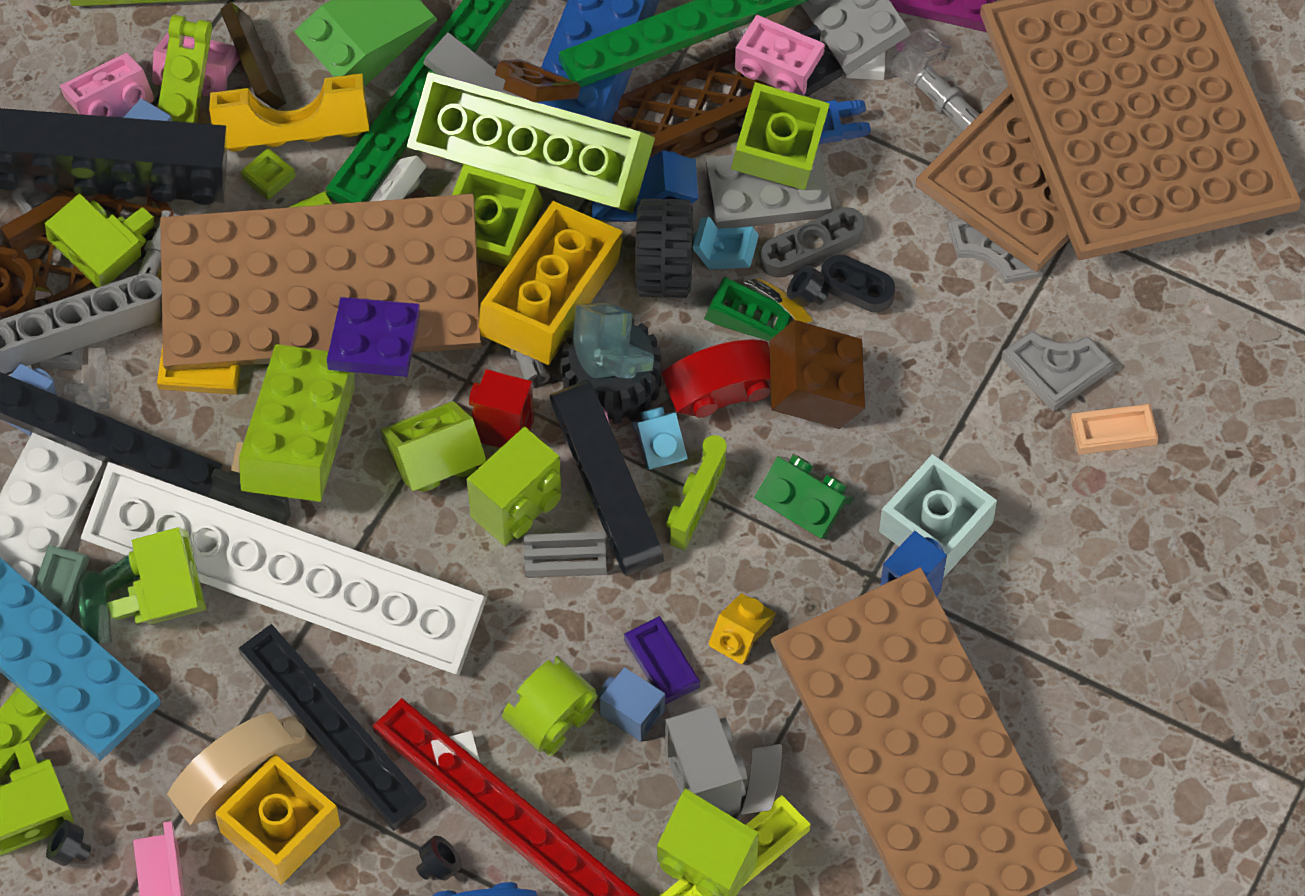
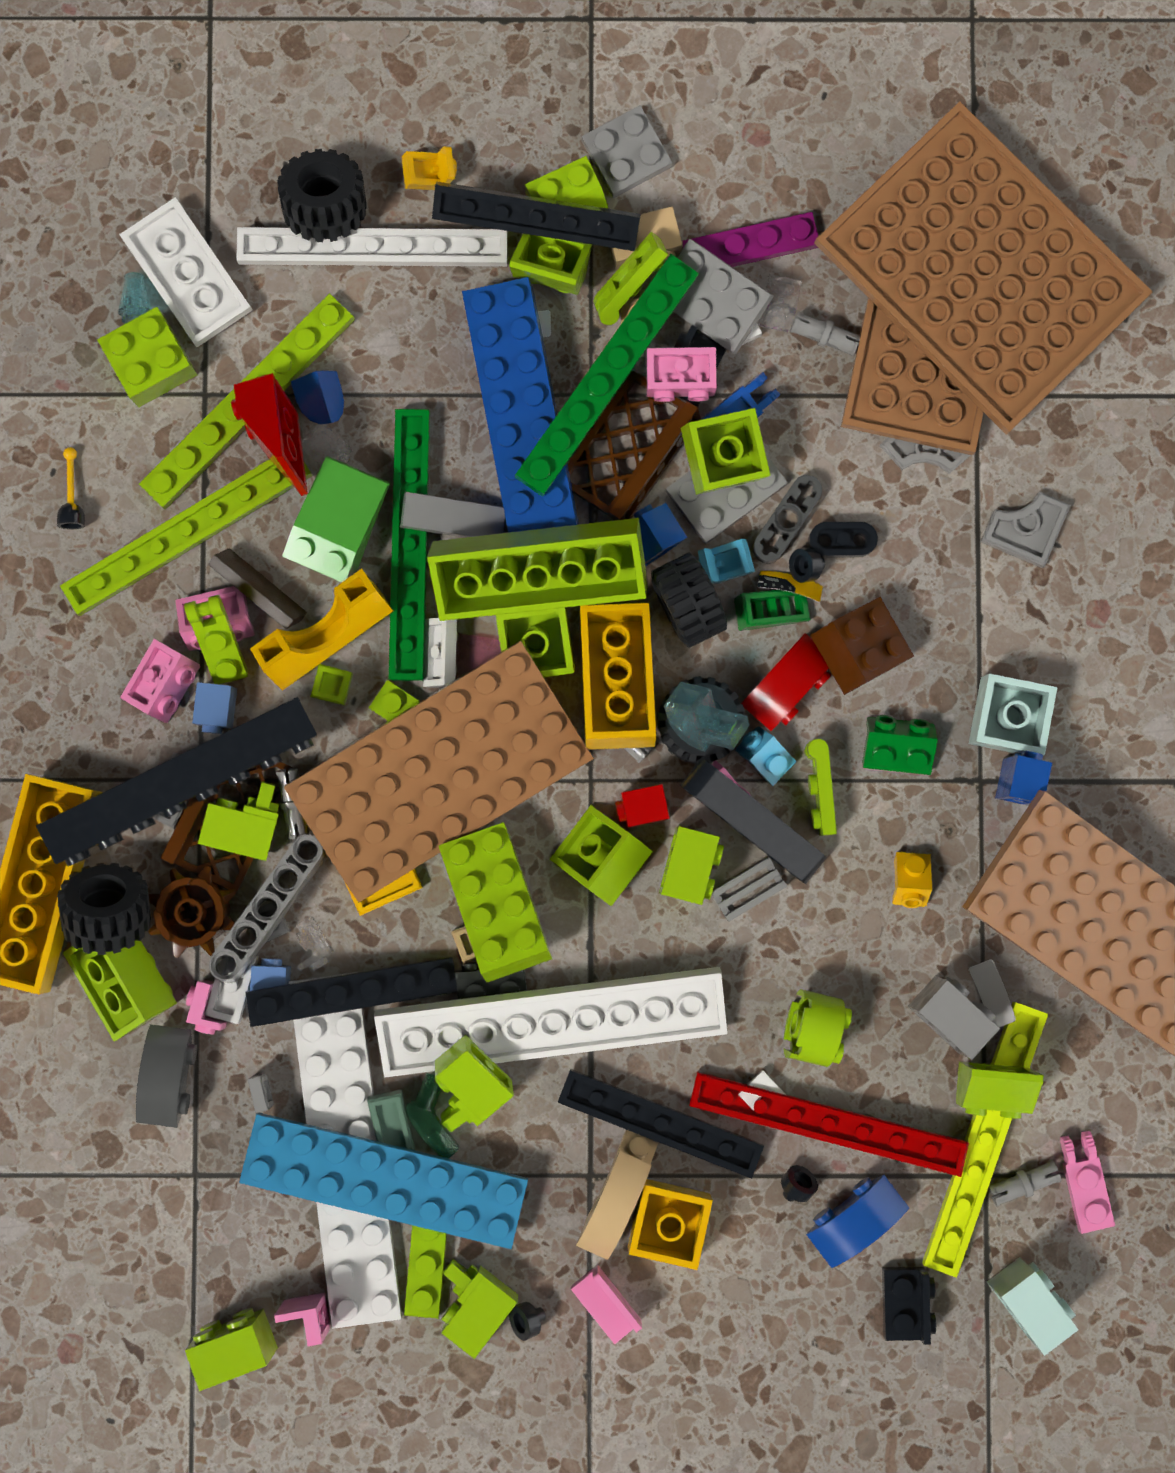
camera: 30 degrees left, 25 degrees up
(373, 337) = (515, 806): dark purple plate -> none
(535, 82) = (513, 515): reddish brown tile -> none
(631, 703) = (867, 988): medium blue brick -> none
(662, 659) = (866, 936): dark purple tile -> none
(1114, 429) = (1096, 561): light nougat tile -> none

